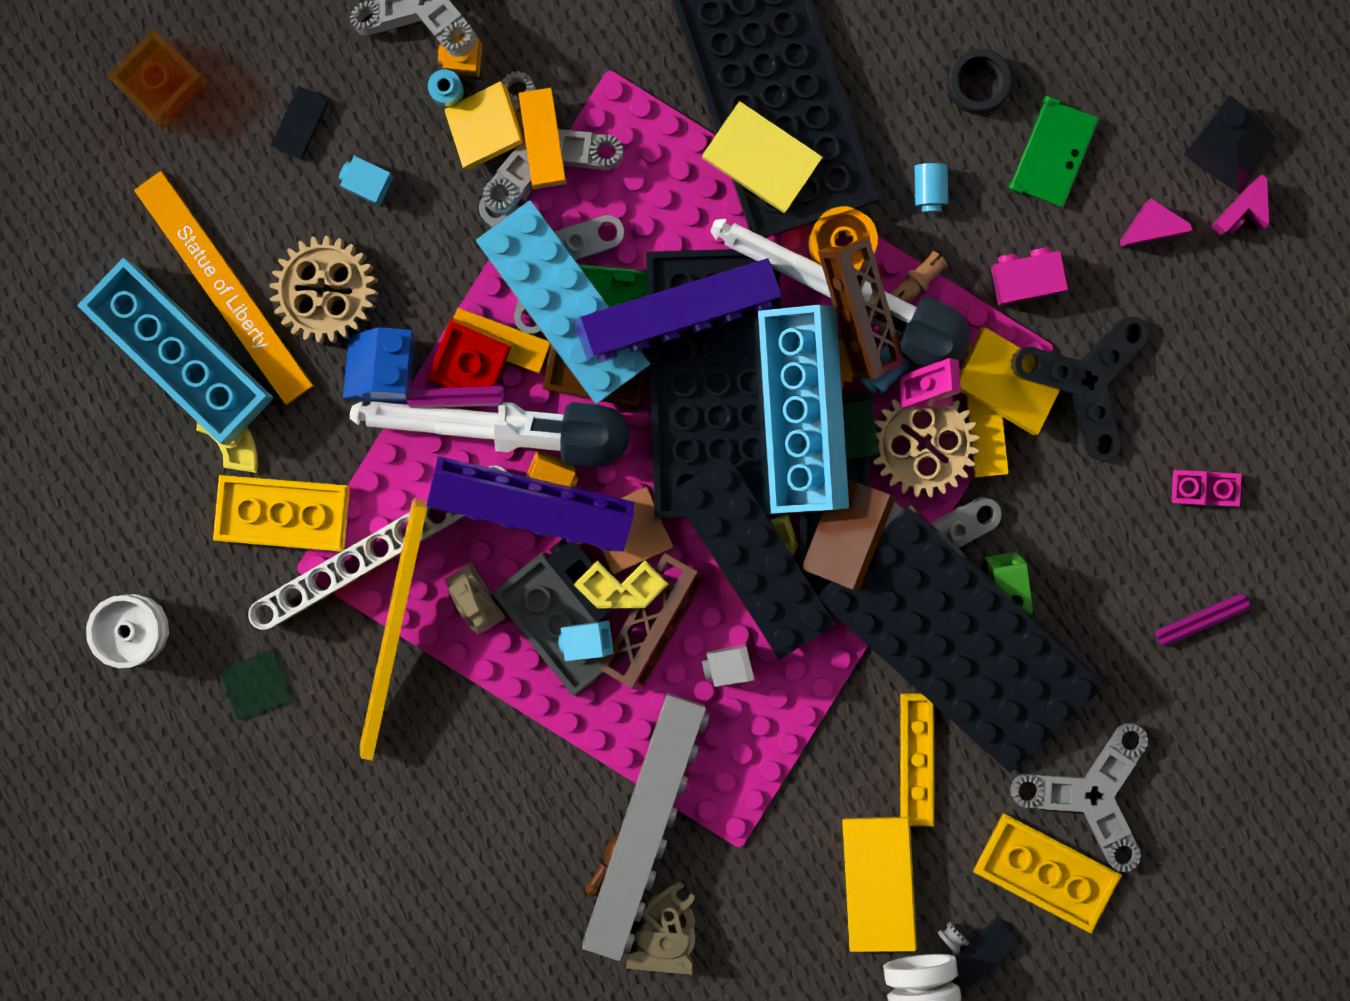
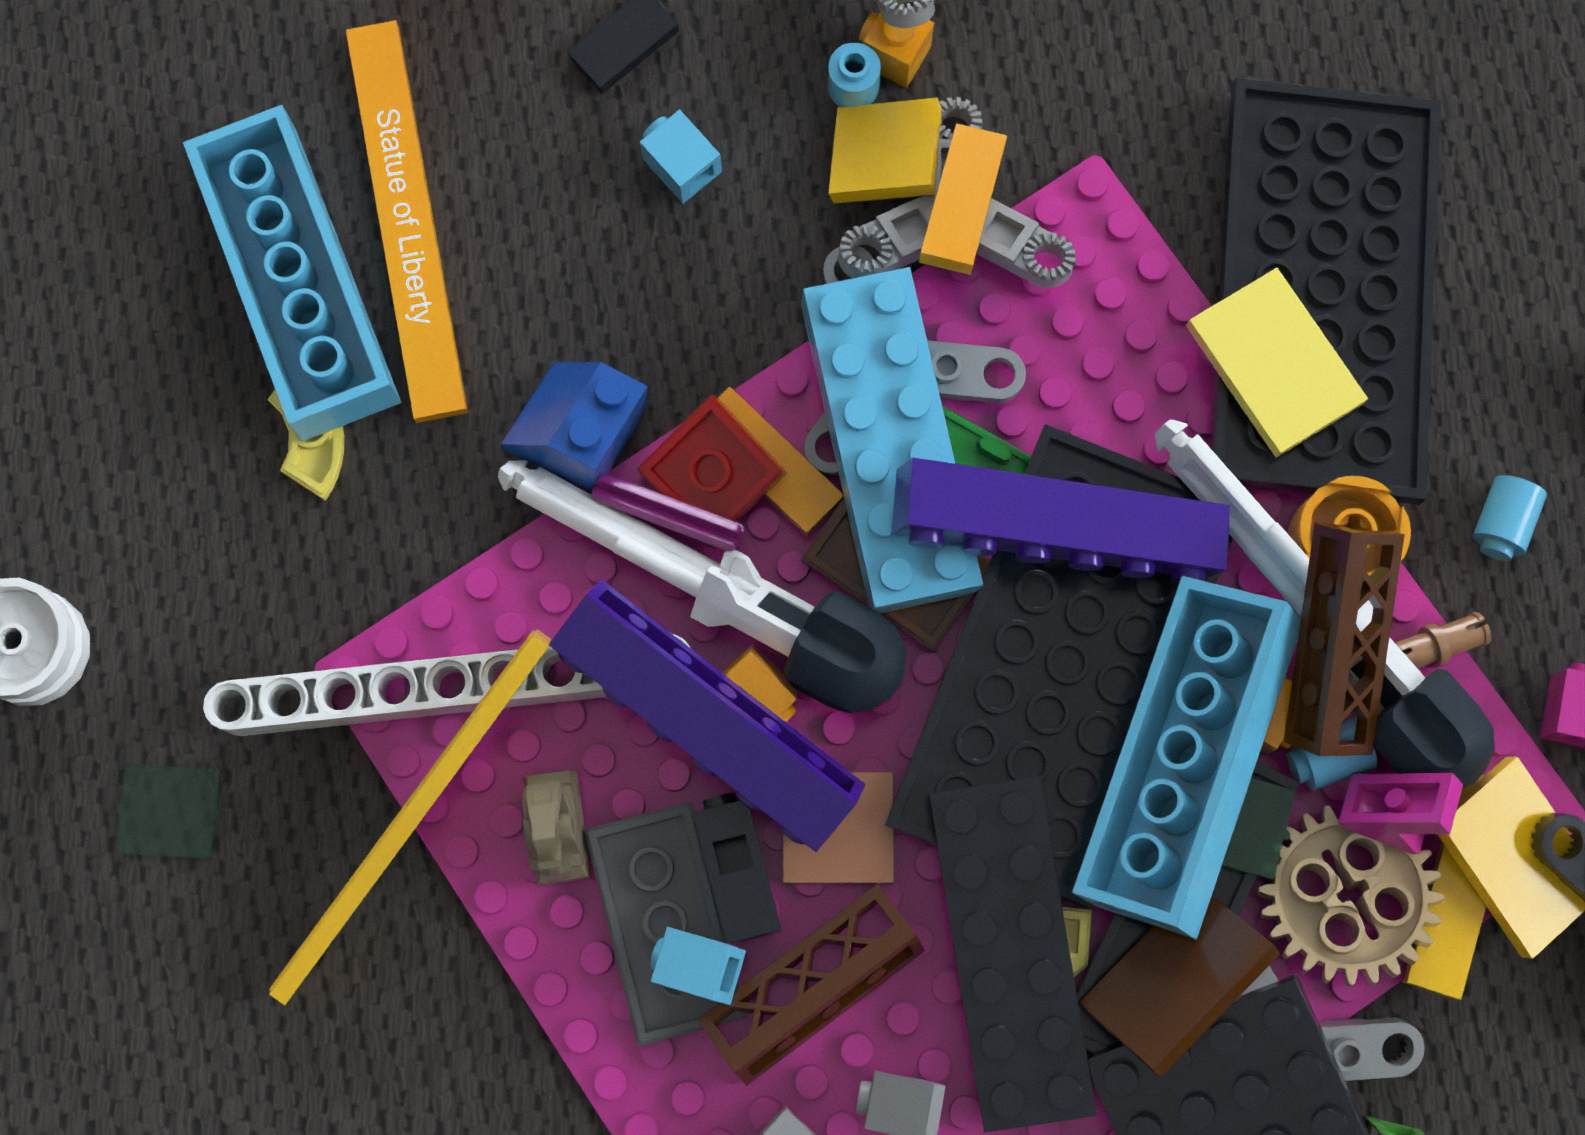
camera: 30 degrees right, 10 degrees down
(281, 513) = (331, 573): yellow tile -> none
(327, 261) = (571, 243): tan gear -> none
(634, 592) = (763, 905): light yellow tile -> none

